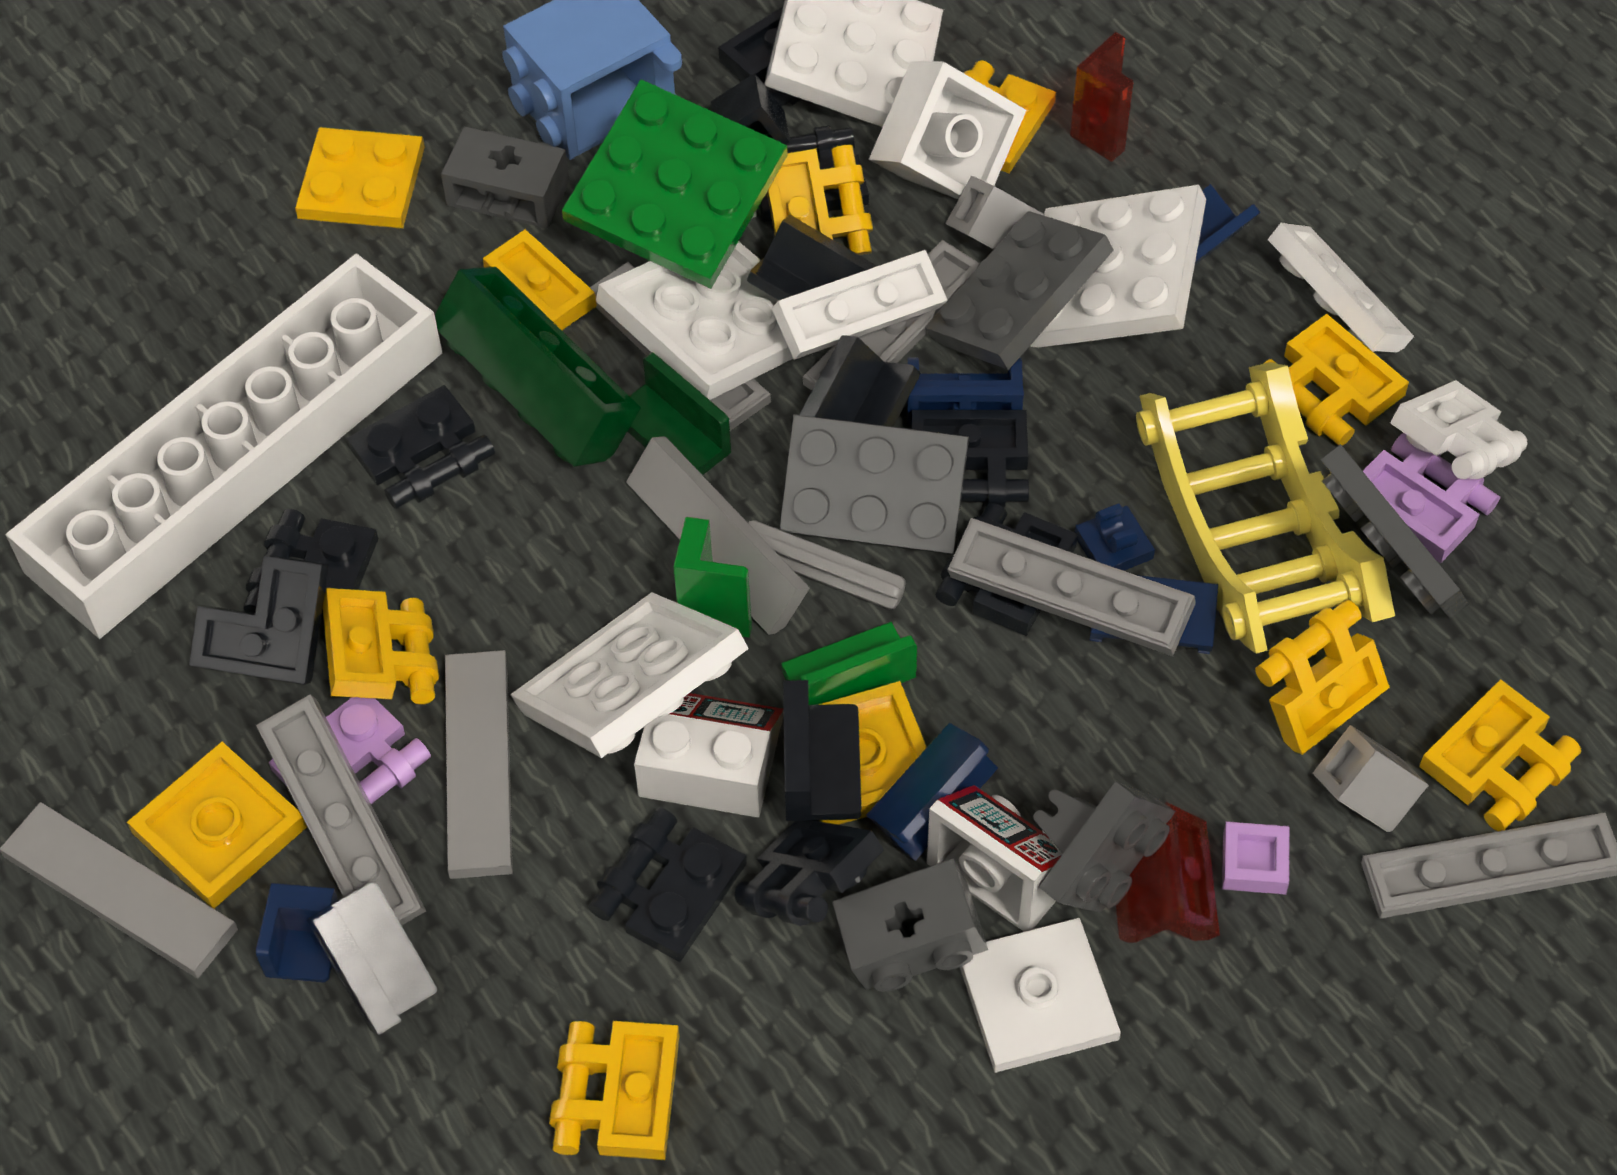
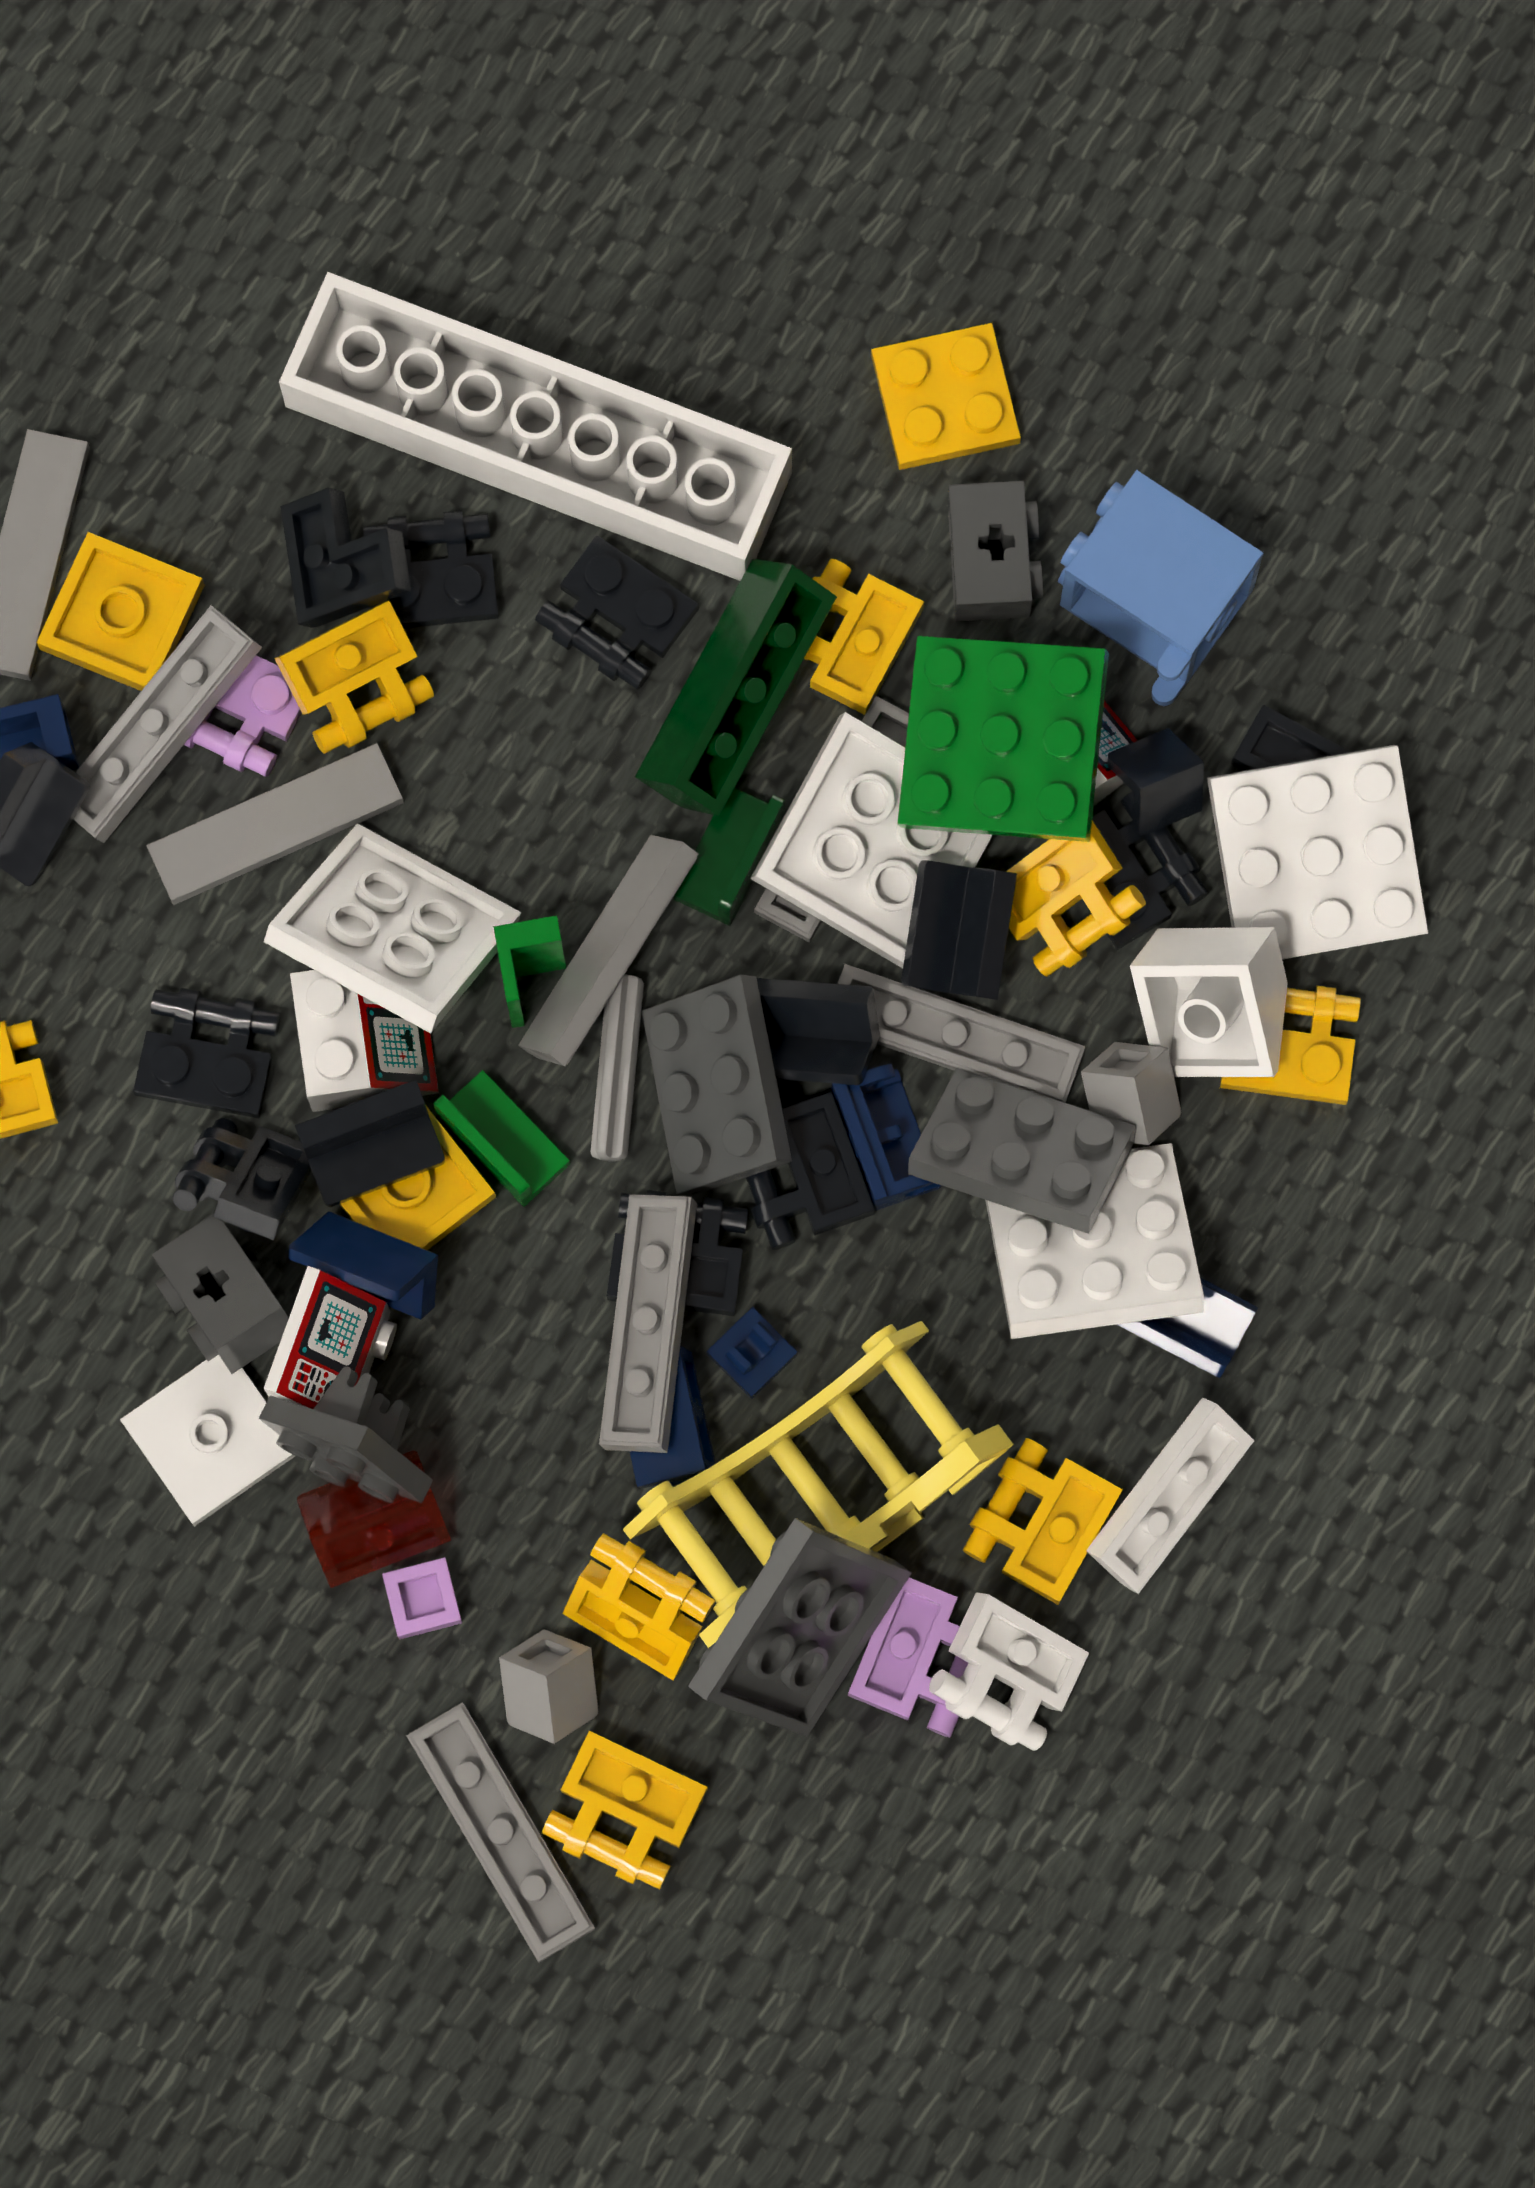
camera: 70 degrees right, 20 degrees up
(859, 304) = (925, 990): white plate -> none
(1102, 100) = (1333, 1142): clear red panel -> none

